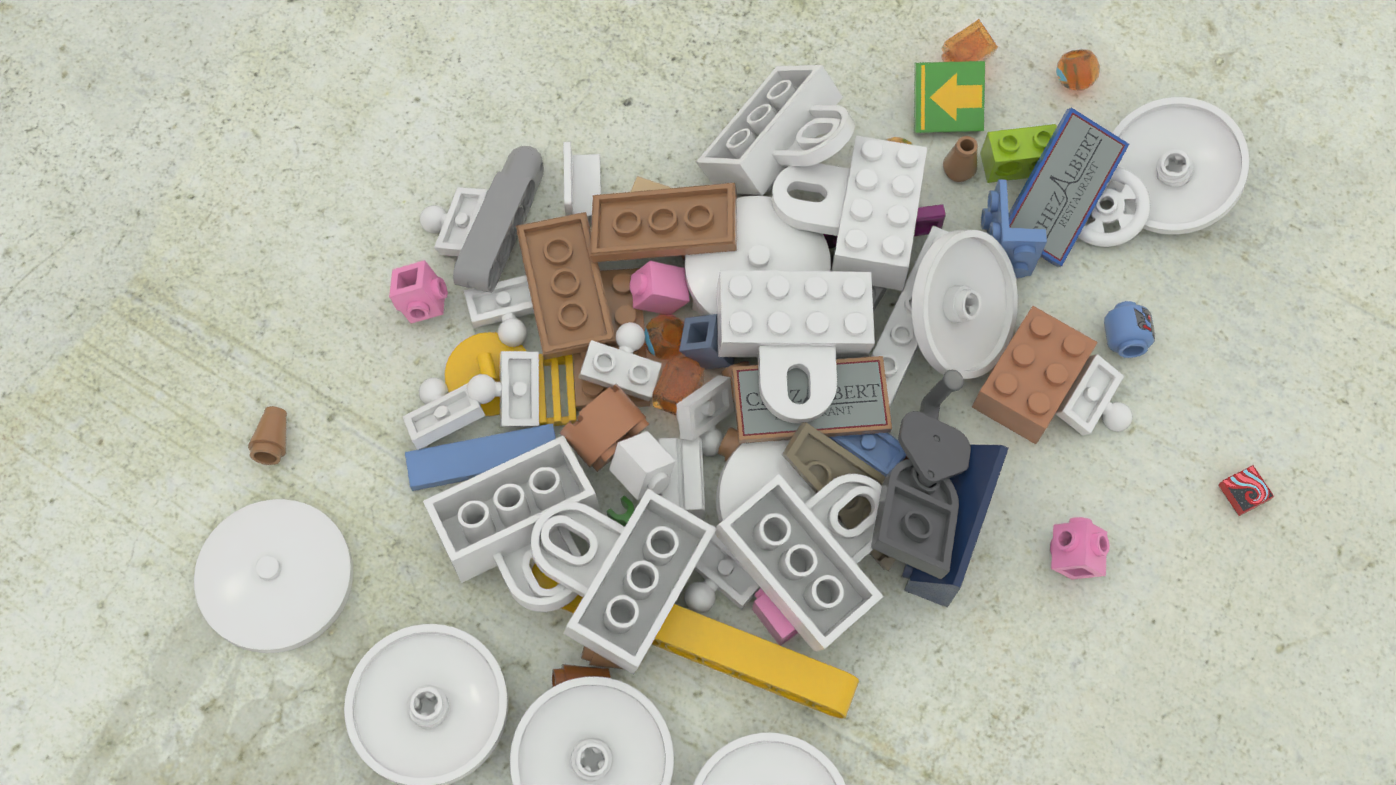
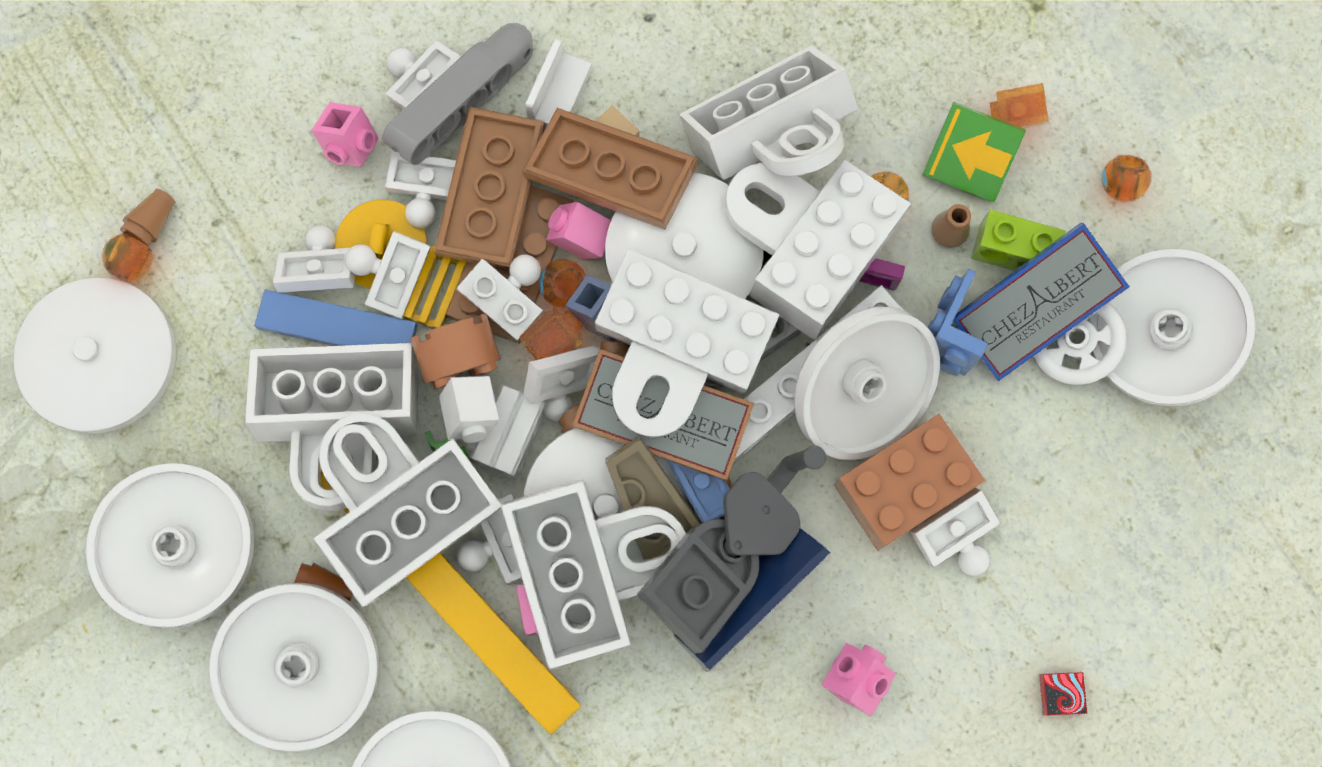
camera: 25 degrees right, 10 degrees up
(267, 476) = (126, 258): none -> clear orange piece
(1129, 329) = (1030, 478): medium blue head -> none

